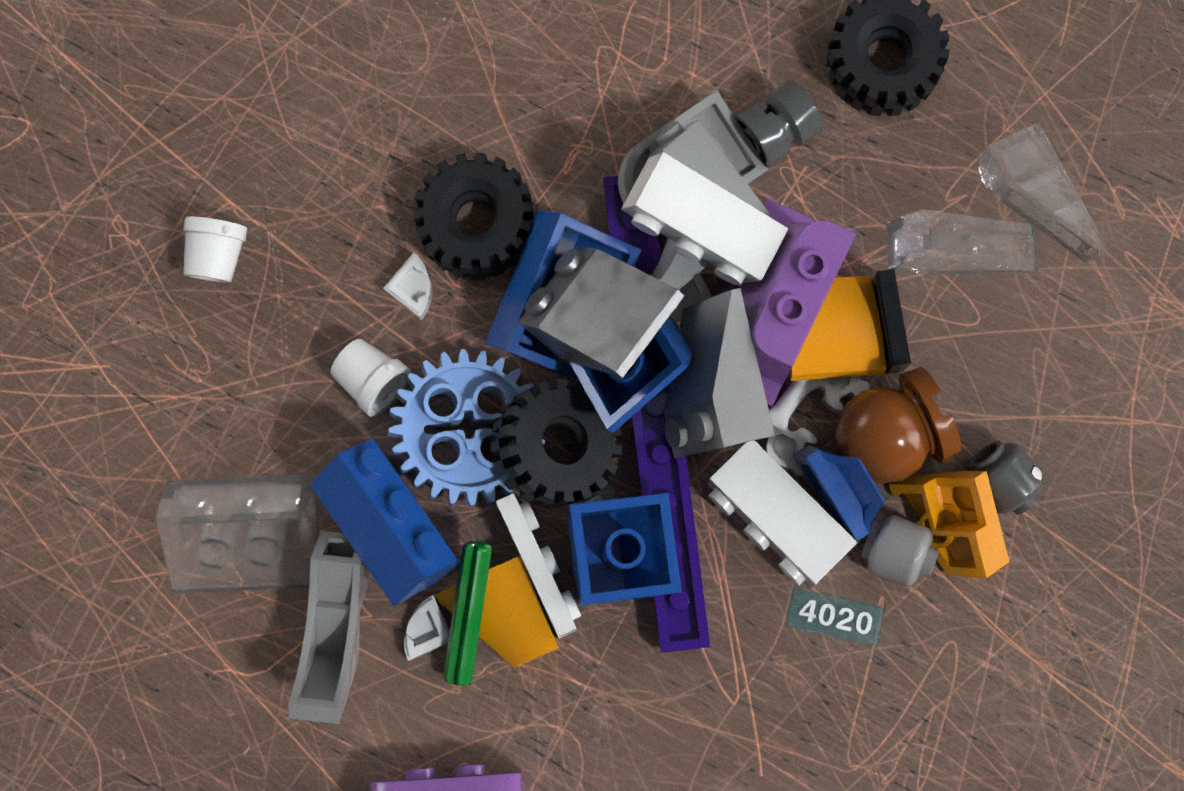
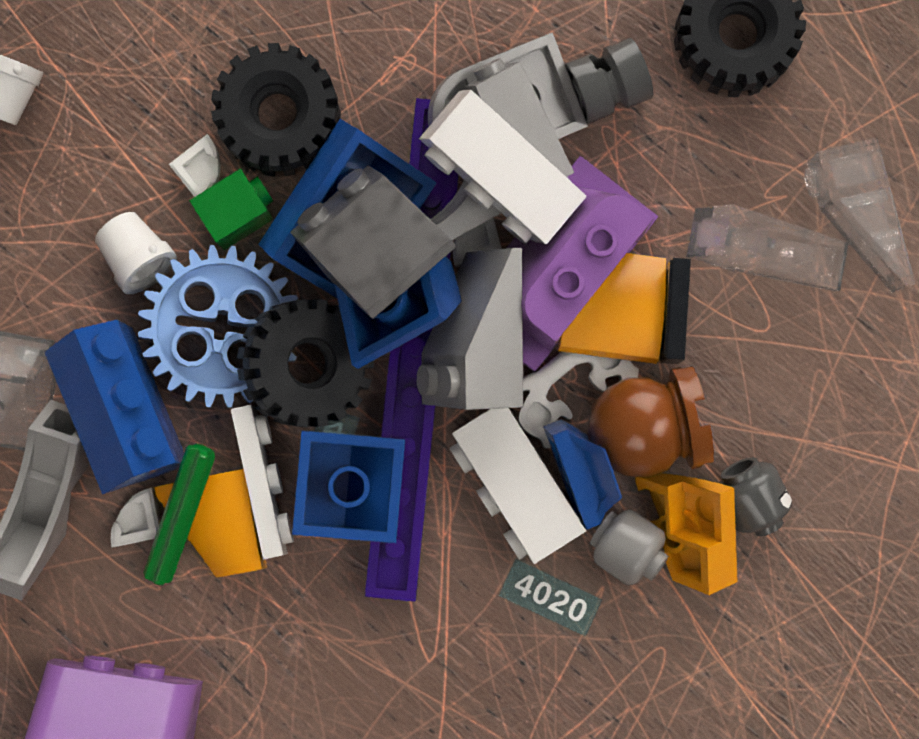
camera: 15 degrees right, 5 degrees up
(455, 315) = (233, 208): none -> green brick

